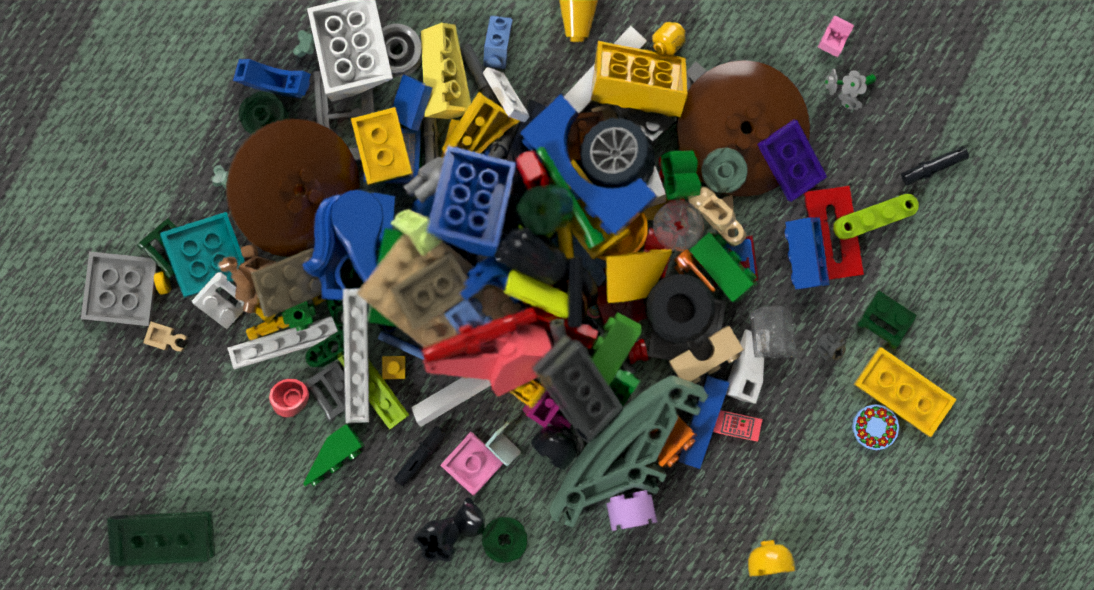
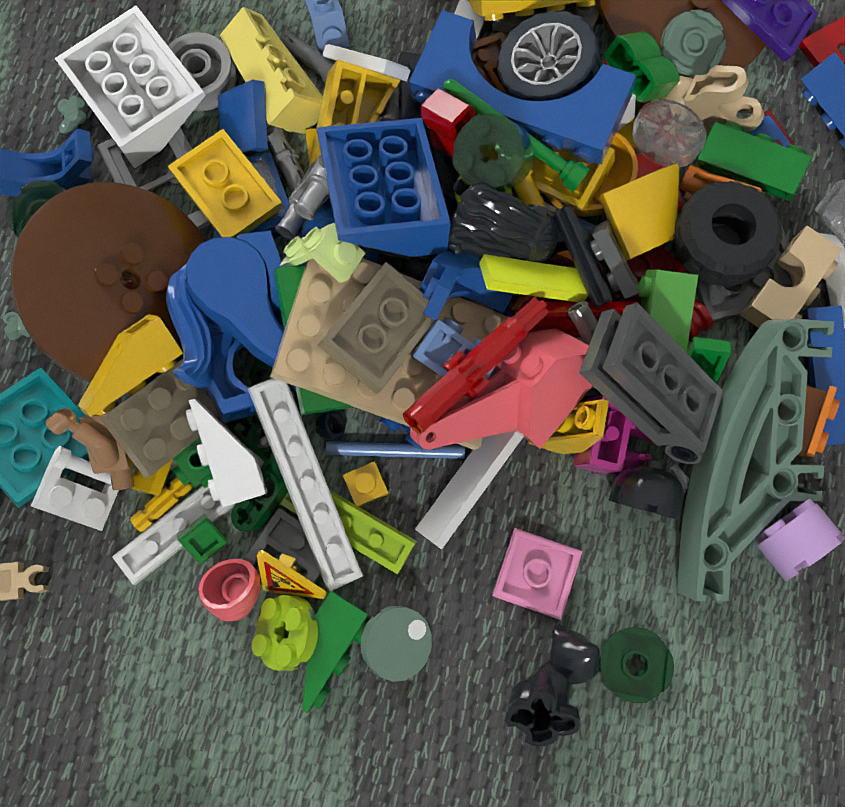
camera: 25 degrees left, 10 degrees down
(282, 242) = (132, 358): none -> yellow slope
(284, 360) = (202, 539): none -> green tile
(299, 436) = (269, 642): none -> lime plate
(317, 326) = (231, 463): none -> white slope
(321, 404) = (281, 577): none -> yellow piece
(372, 469) = (396, 643): none -> sand green tile
(419, 456) = (457, 595): black axle -> none
(502, 446) = (570, 530): light aqua bracket -> none
(596, 303) = (607, 248): none -> dark grey plate

